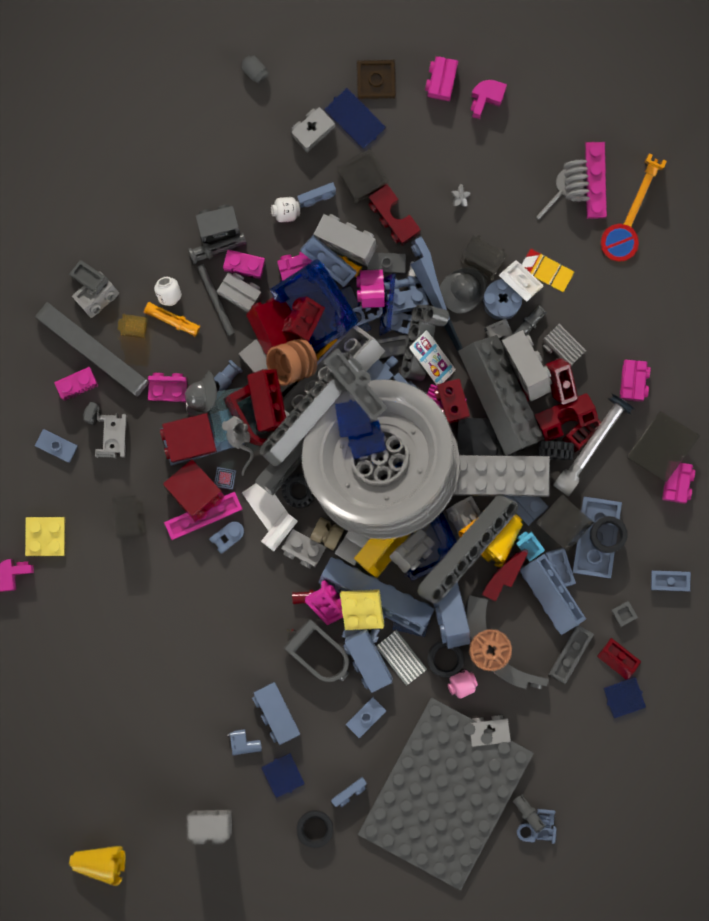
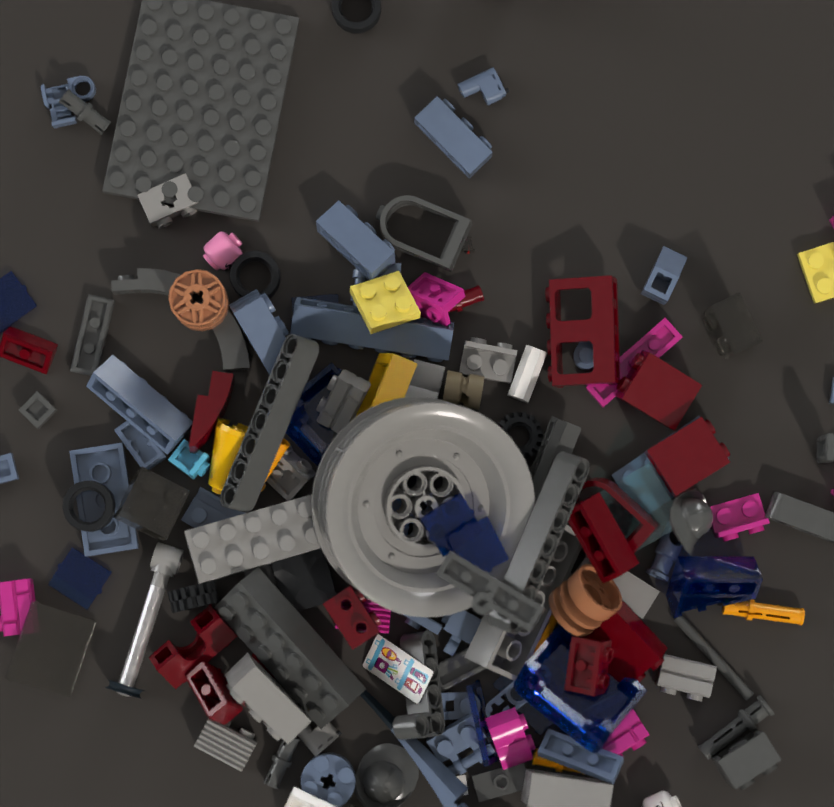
camera: 160 degrees right, 0 degrees up
(112, 436) = (789, 429): light grey piece -> none
(132, 326) = (812, 584): clear yellow brick -> none
(162, 569) = (664, 275): none -> sand blue slope
(167, 291) = (782, 646): white head -> none
(200, 350) = (712, 580): none -> clear blue wedge
(220, 543) = (600, 329): none -> dark red window
(225, 478) = (621, 421): tile -> none
(237, 435) = (624, 480): light grey animal -> none
(244, 264) = (691, 716): dark pink brick -> none
(265, 505) = (557, 402): white sticker -> none
(283, 775) = (419, 63): clear blue piece -> none
(342, 798) = (332, 58): sand blue plate -> none
(365, 717) = (335, 169): sand blue plate -> none
(401, 657) = (314, 261): light grey sticker -> none
(574, 438) = (178, 617): dark red slope -> none
(629, 489) = (79, 578): none -> clear blue piece
(634, 380) = (116, 727): dark pink brick -> none

